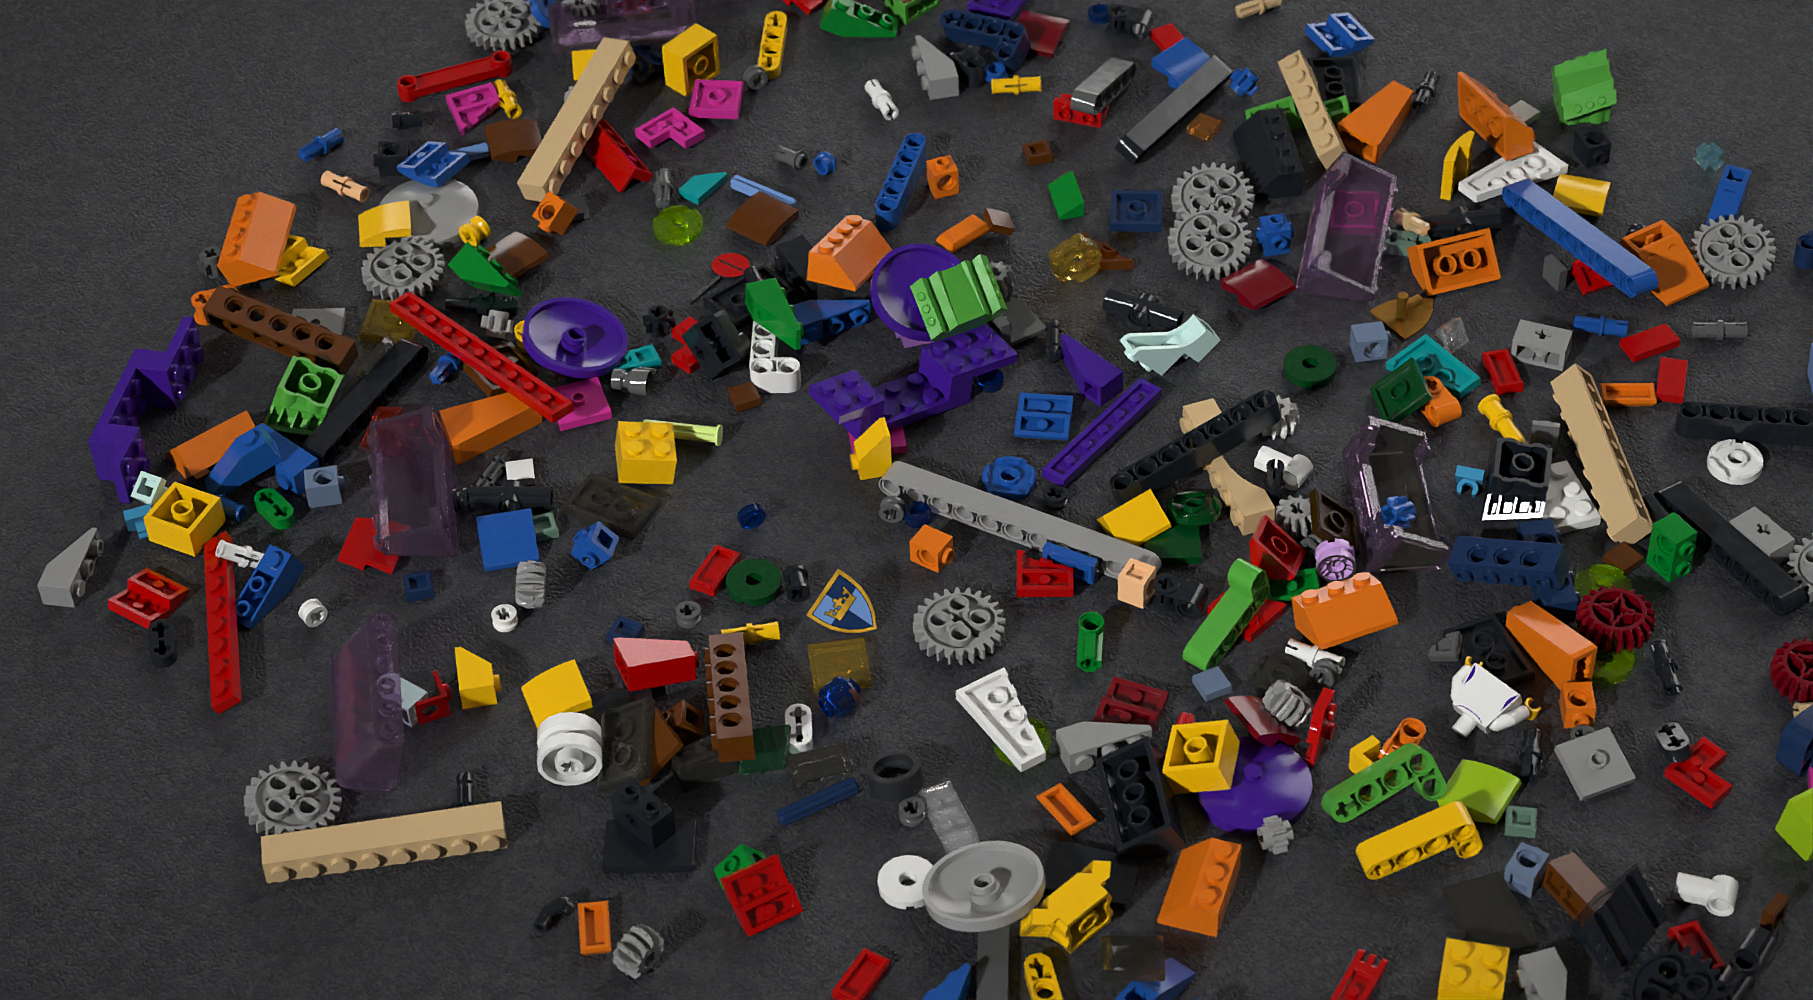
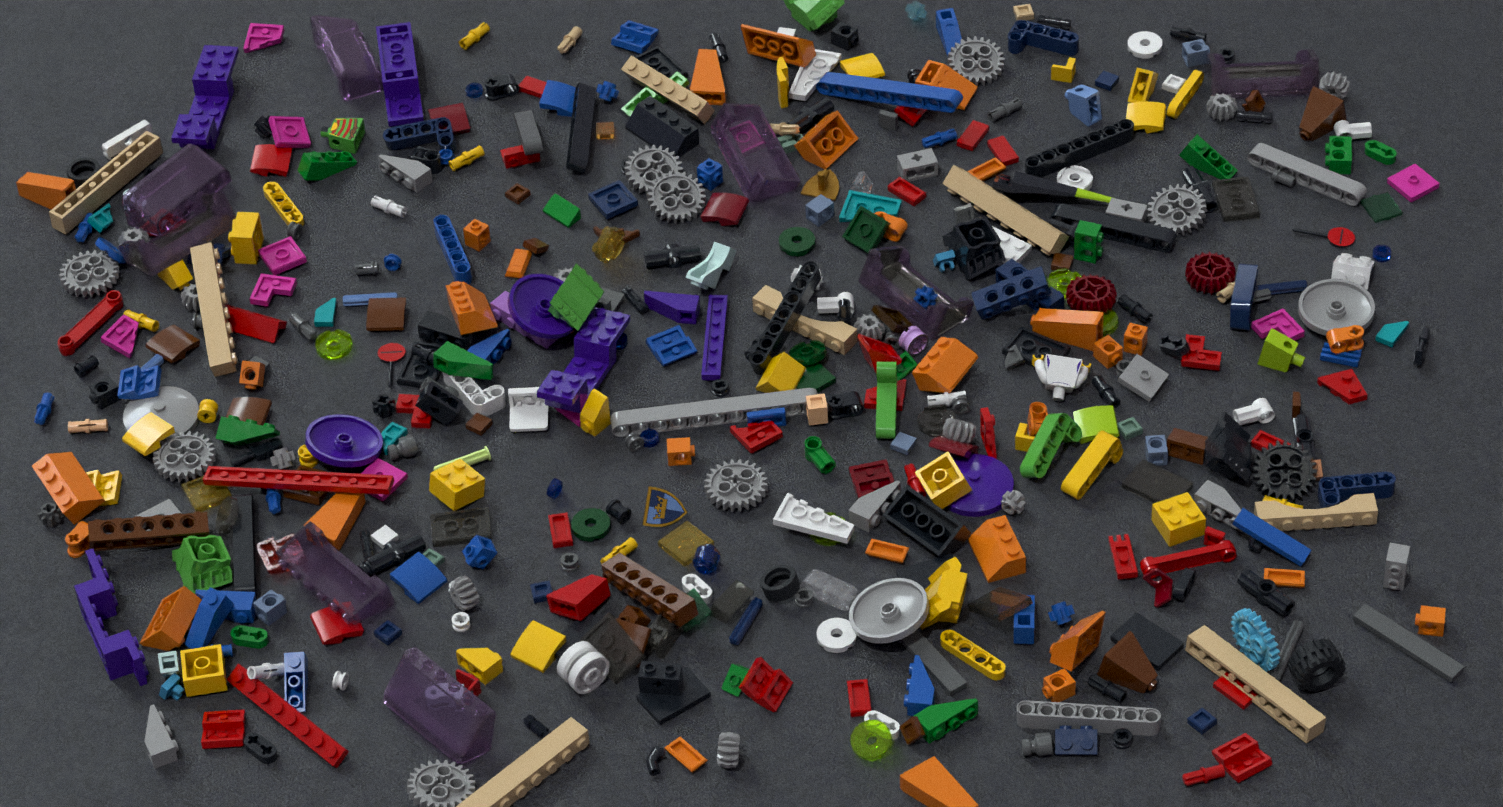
camera: 35 degrees left, 0 degrees up
(801, 413) = (527, 410): none -> white bracket
(1010, 466) = (679, 383): blue tile -> none
(1499, 418) = (933, 219): yellow pin -> none
(1628, 707) = (1135, 339): none -> orange brick
(1659, 436) = (1031, 184): none -> black plate

